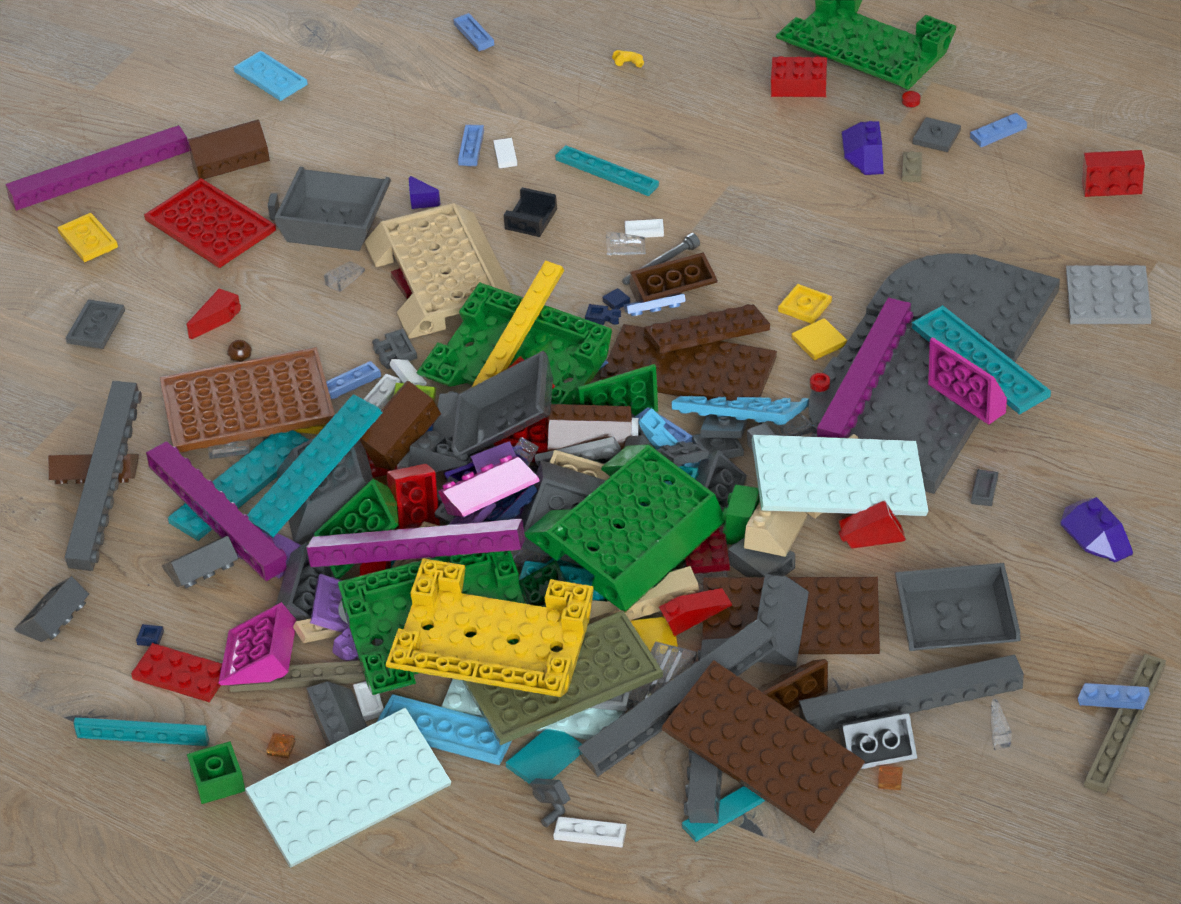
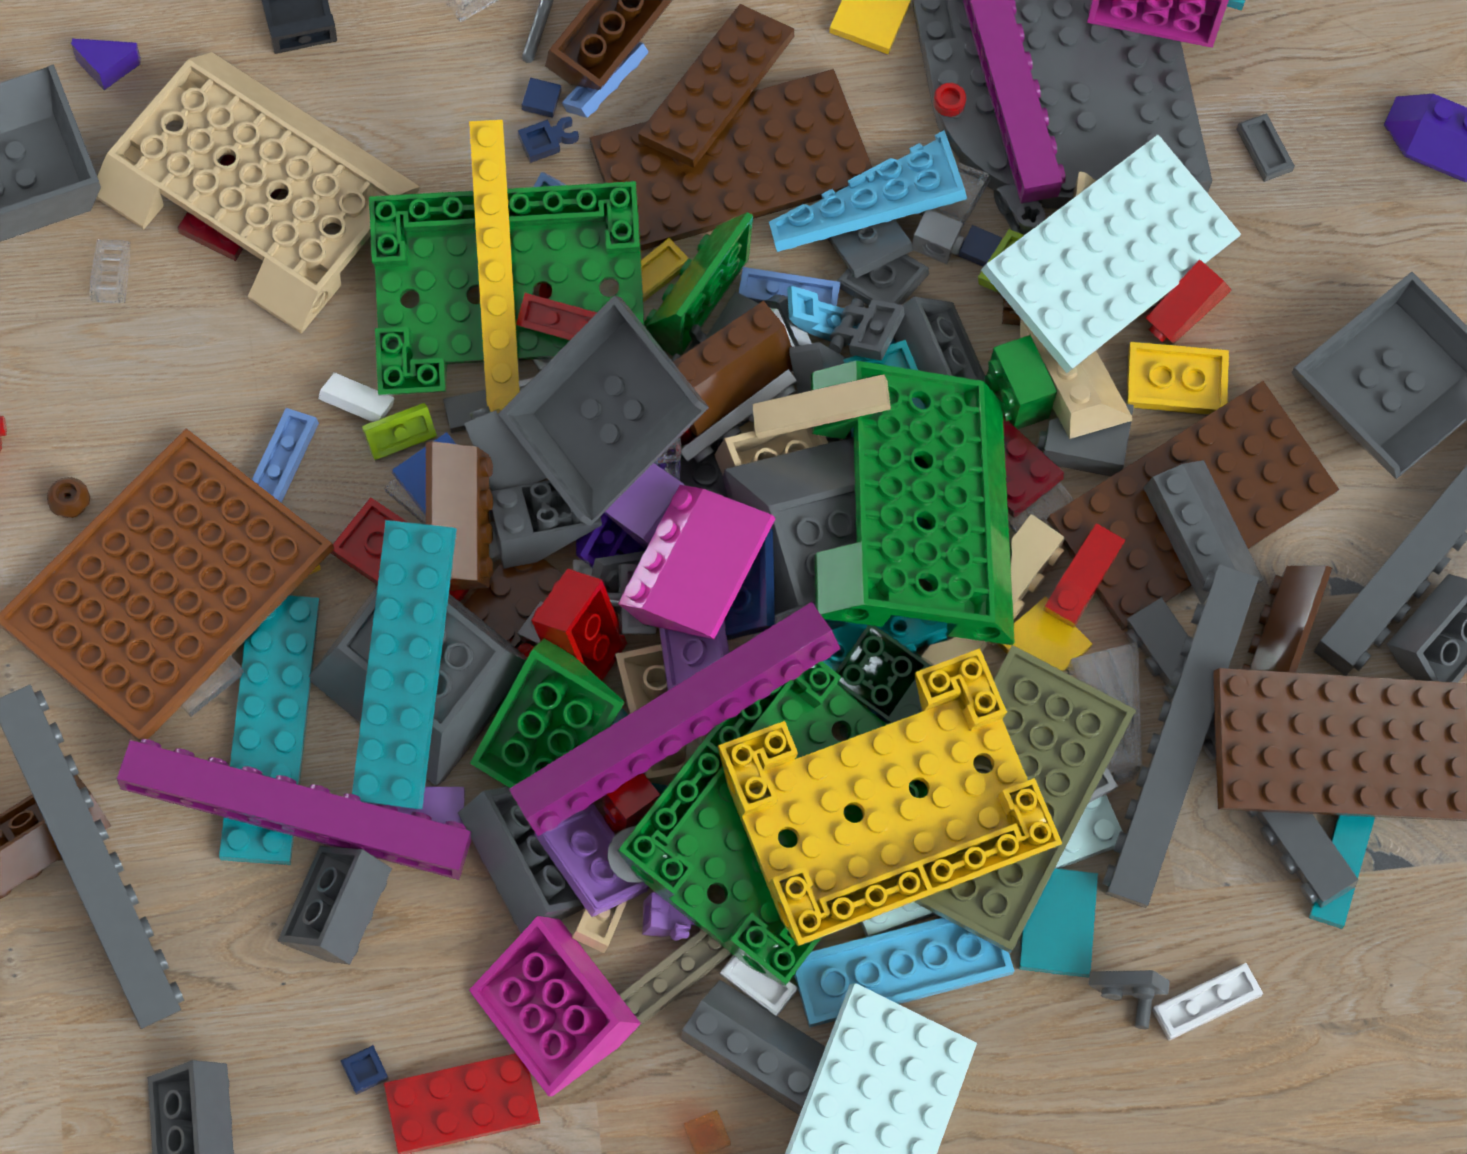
camera: 45 degrees left, 25 degrees up
(383, 391) = (344, 462): white tile -> none
(399, 345) = (304, 355): dark grey plate -> none
(611, 453) = (821, 406): none -> tan tile
(834, 557) = (1177, 378): none -> yellow plate

